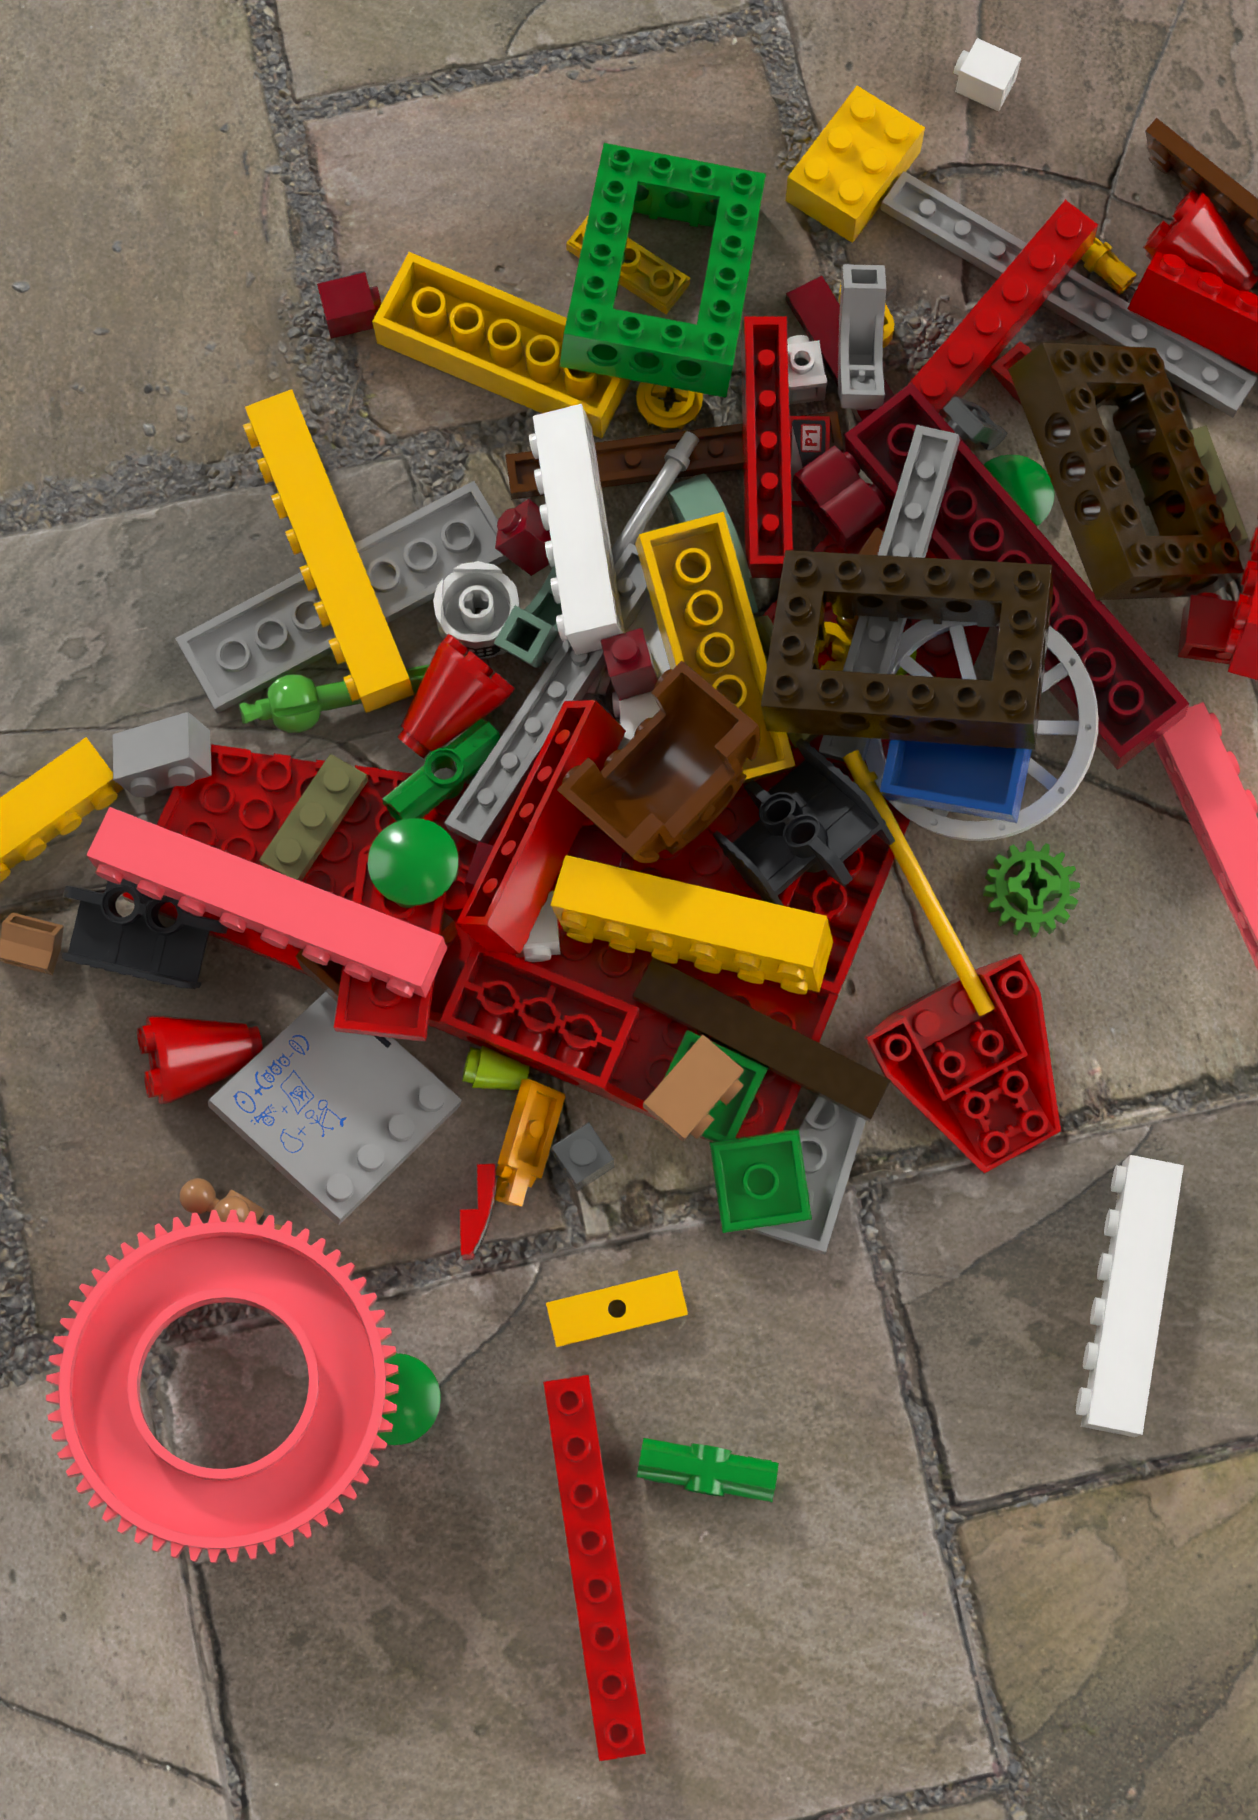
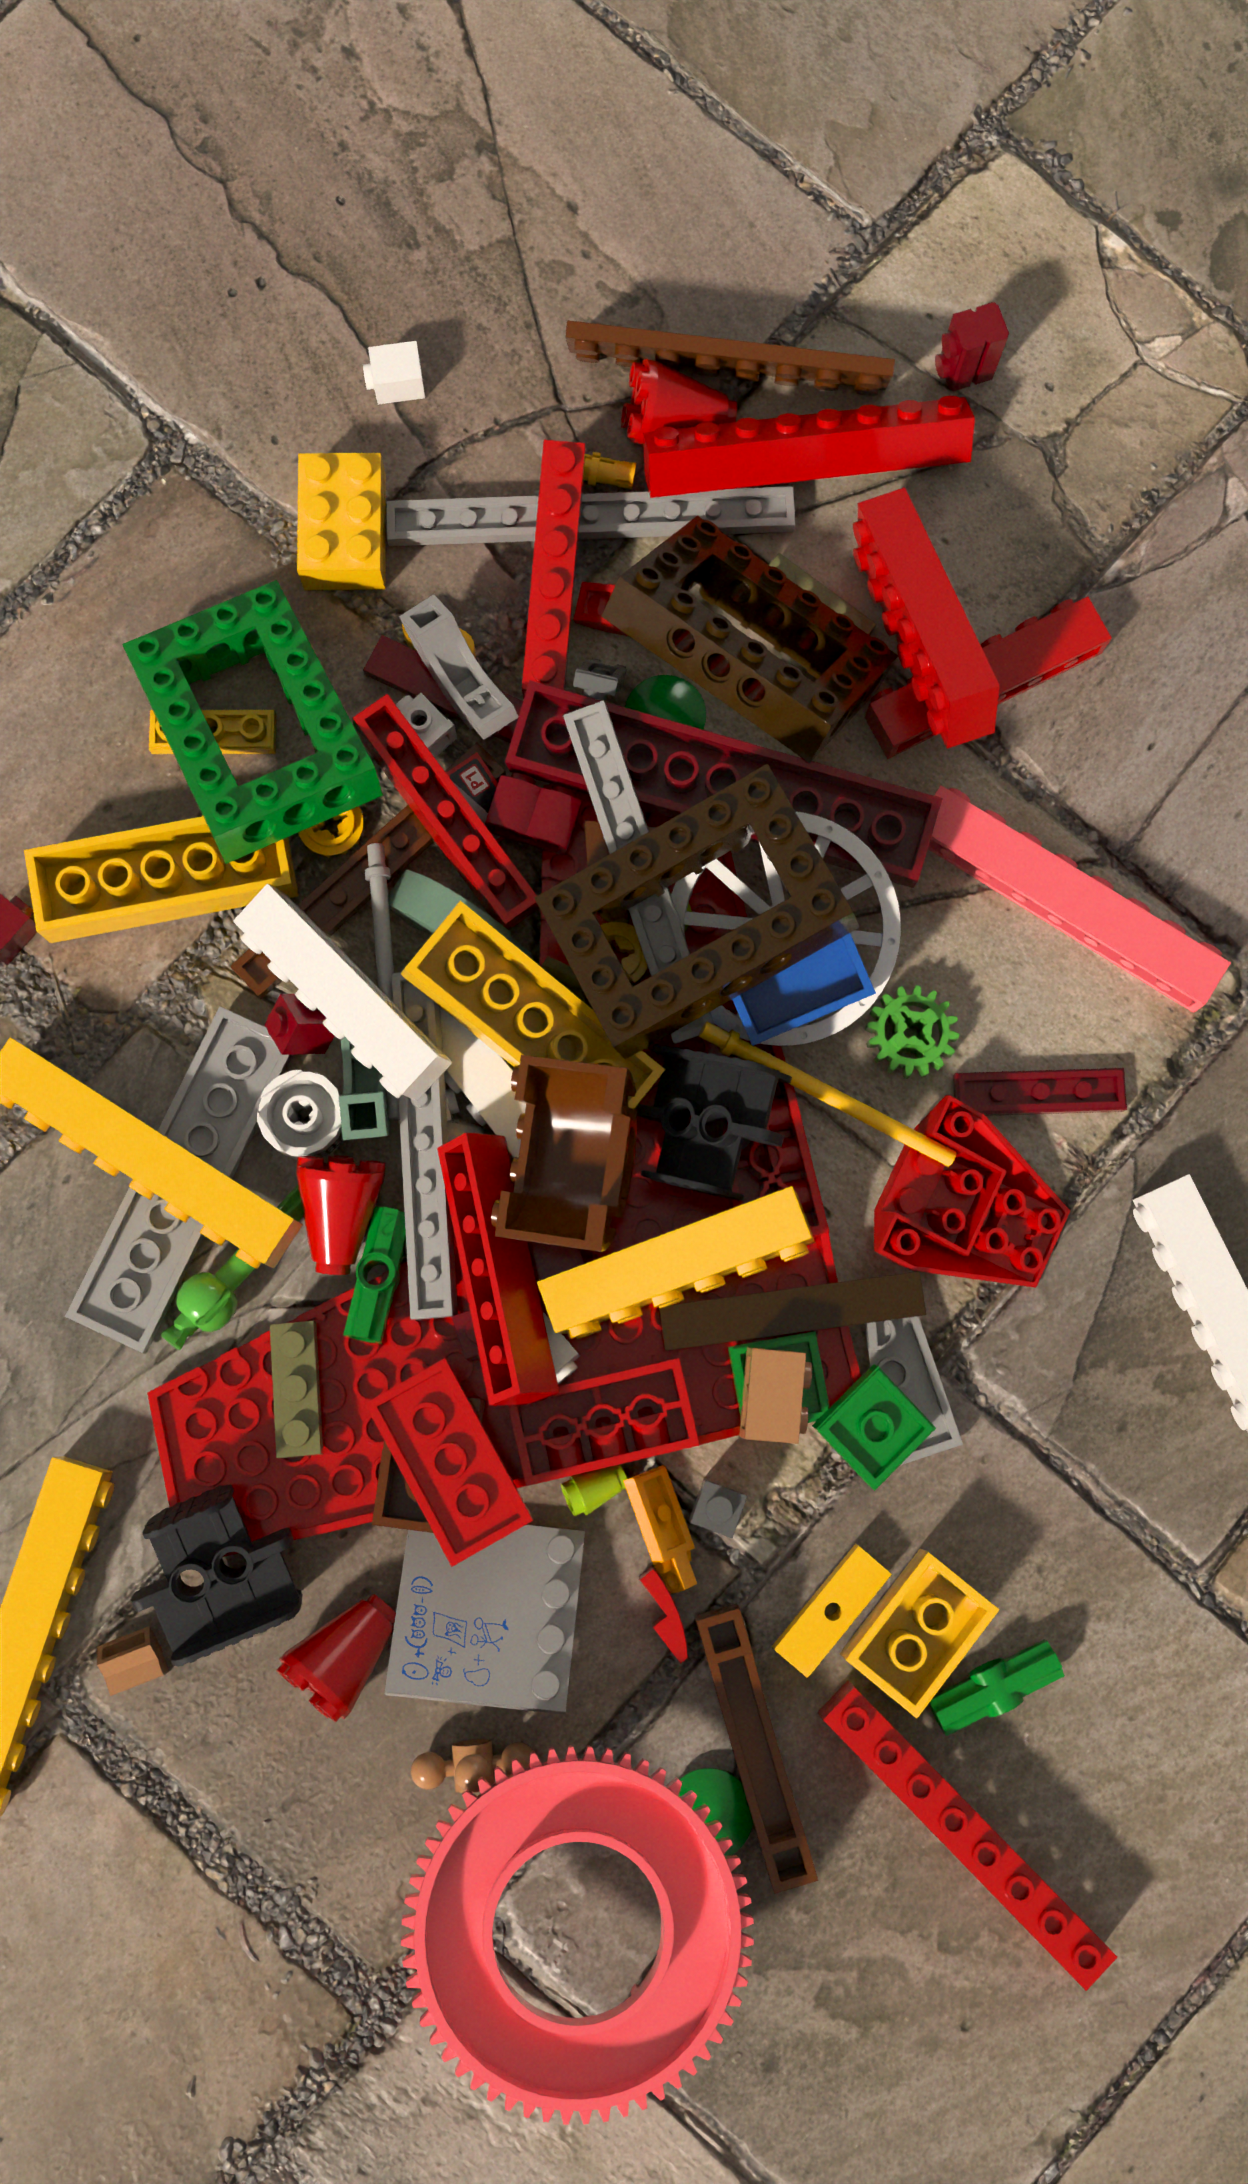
camera: 40 degrees left, 5 degrees up
(161, 755) = (128, 1426): light grey brick -> none
(268, 903) = (318, 1505): coral brick -> none
(413, 862) = (416, 1380): green dish -> none
(473, 1367) = (755, 1748): none -> reddish brown arch
(630, 663) = (469, 1078): dark red brick -> none
(675, 1373) = (919, 1632): none -> yellow brick
(1110, 1017) = (1043, 1091): none -> dark red tile

